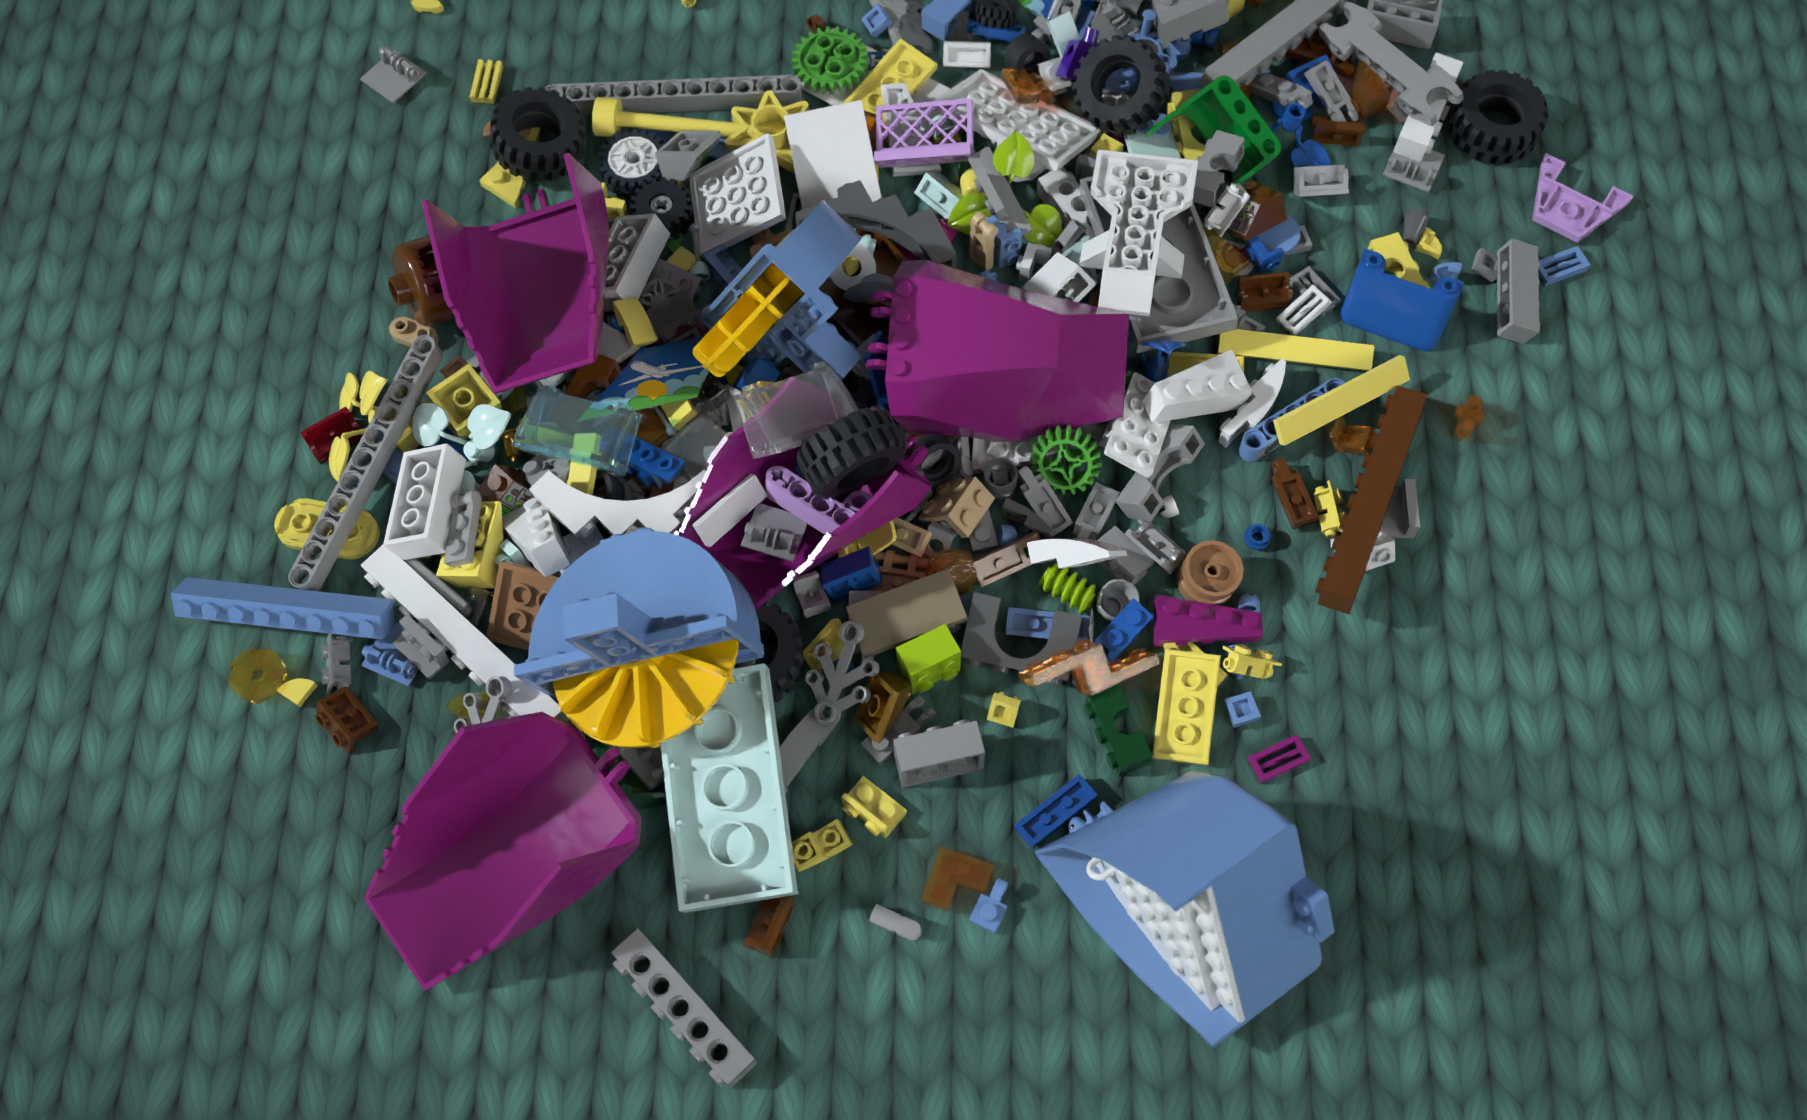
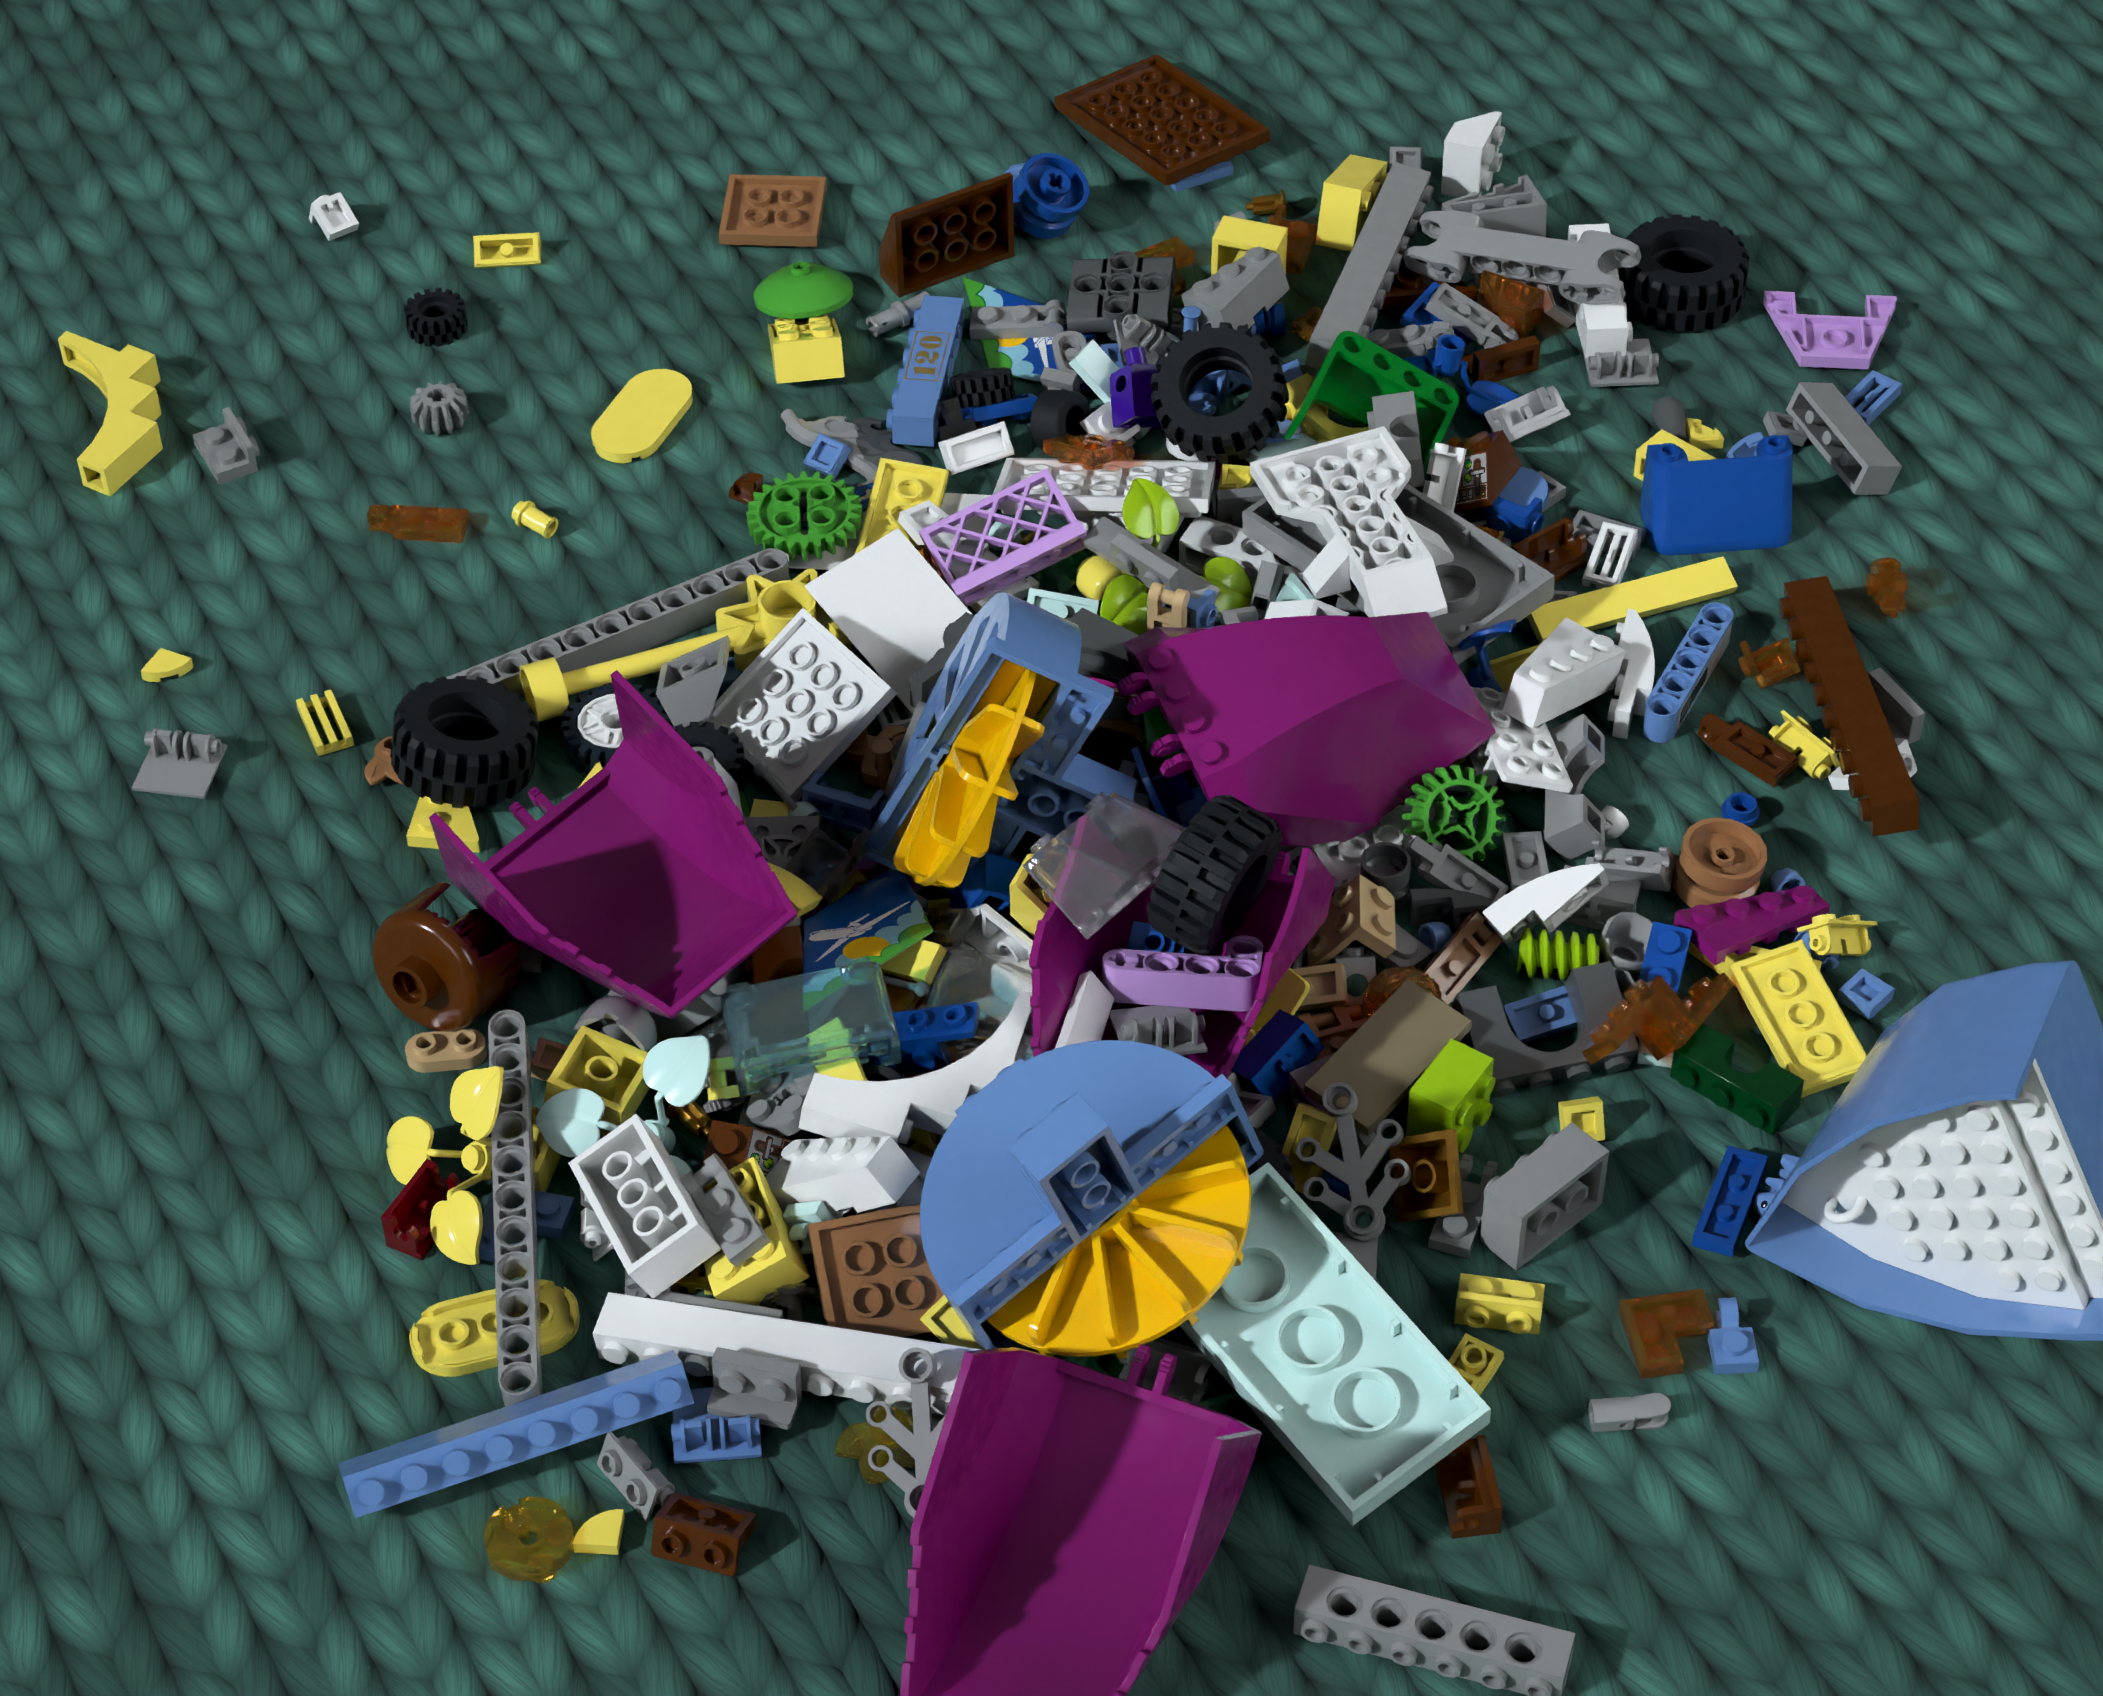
camera: 30 degrees left, 20 degrees down
(1341, 400) = (1733, 621): light yellow tile -> none

